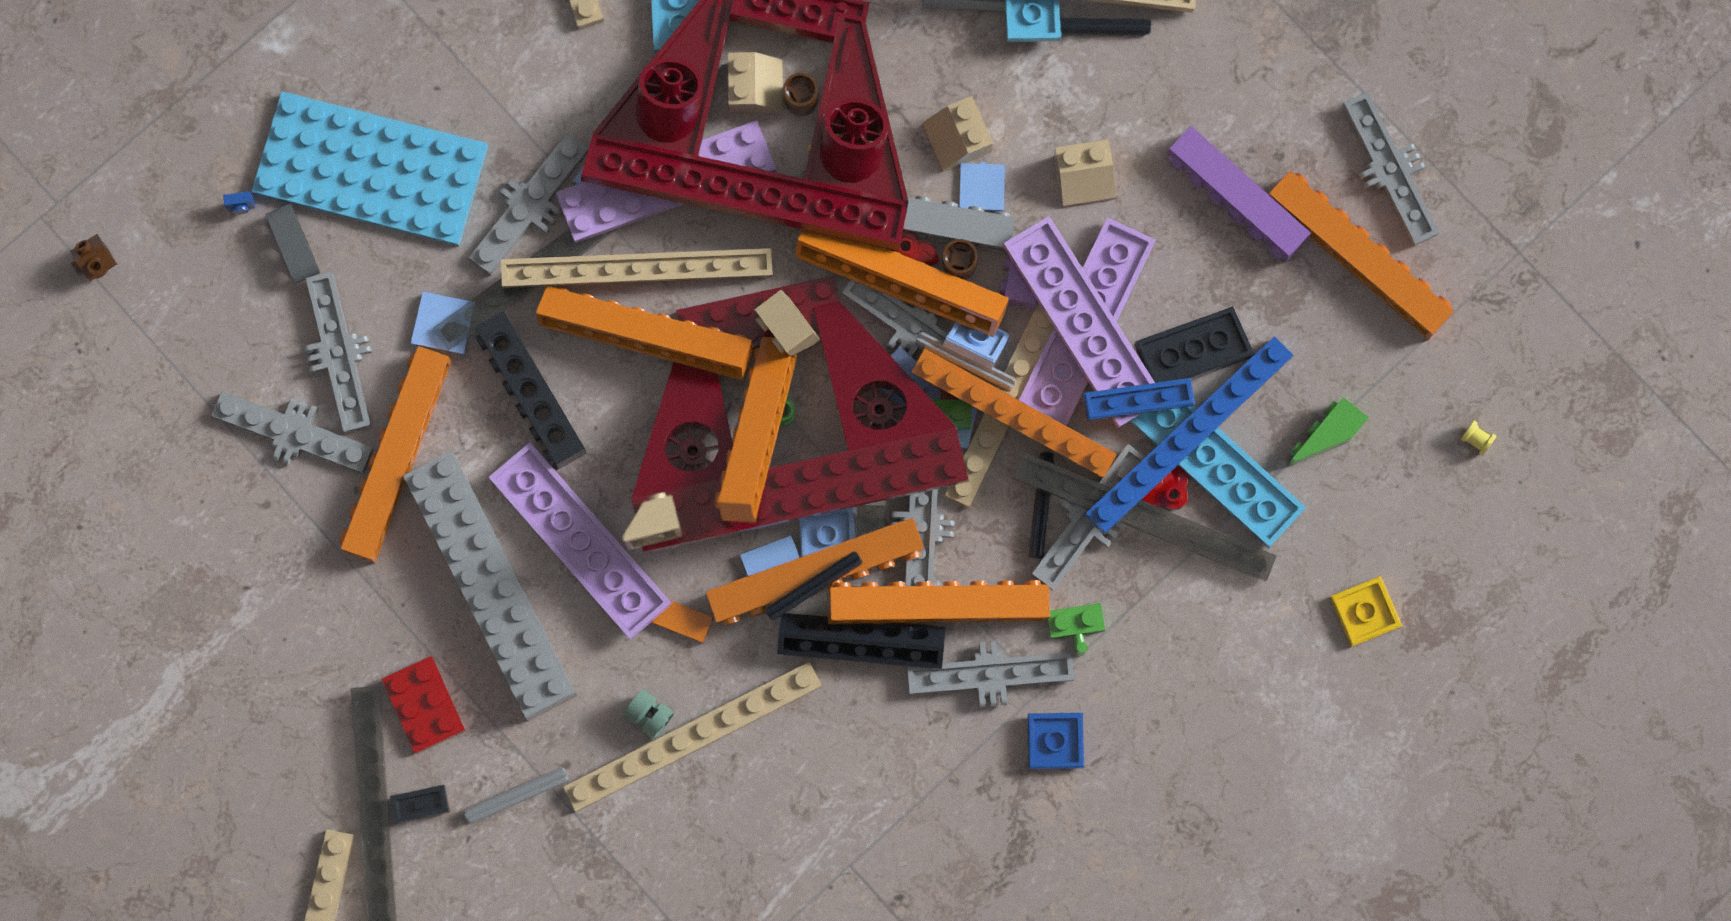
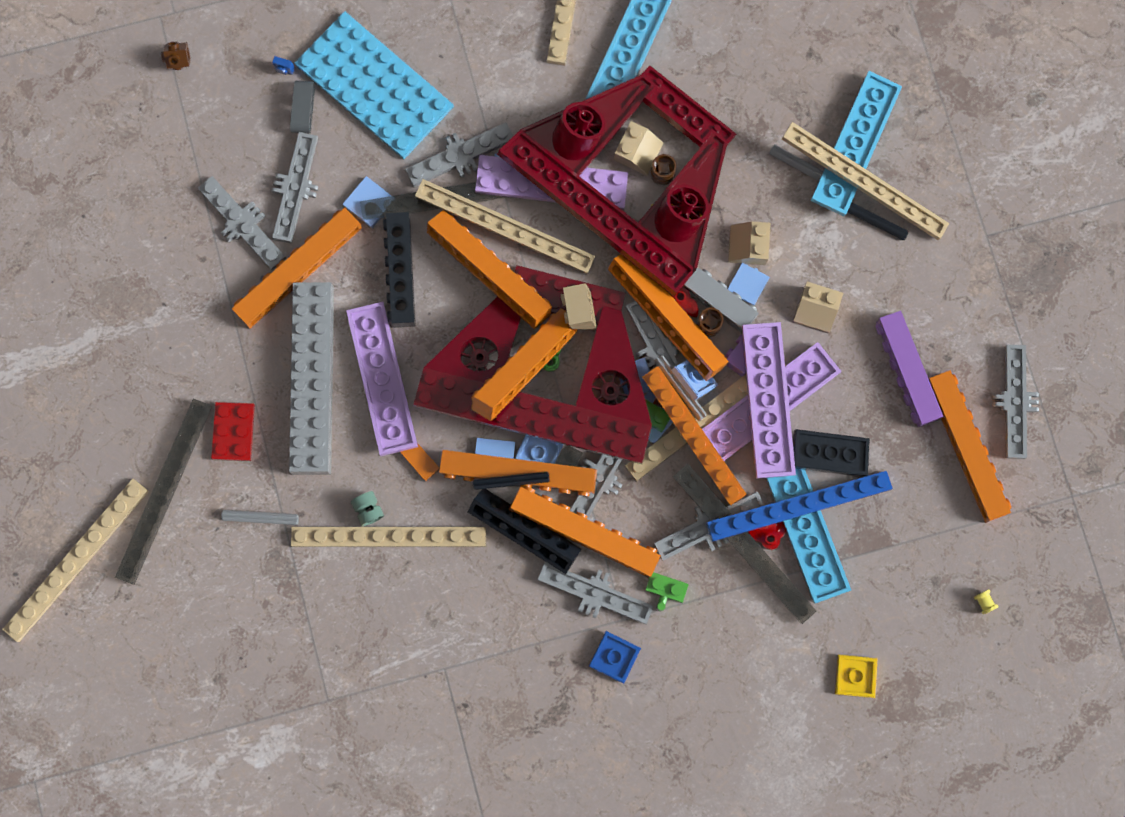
camera: 25 degrees right, 0 degrees up
(420, 804) = (198, 492): black plate -> none
(653, 523) = (427, 389): tan slope -> none
(1040, 516) = (678, 509): black axle -> none
(1138, 399) = (778, 467): blue tile -> none
(1337, 429) = (895, 550): bright green slope -> none

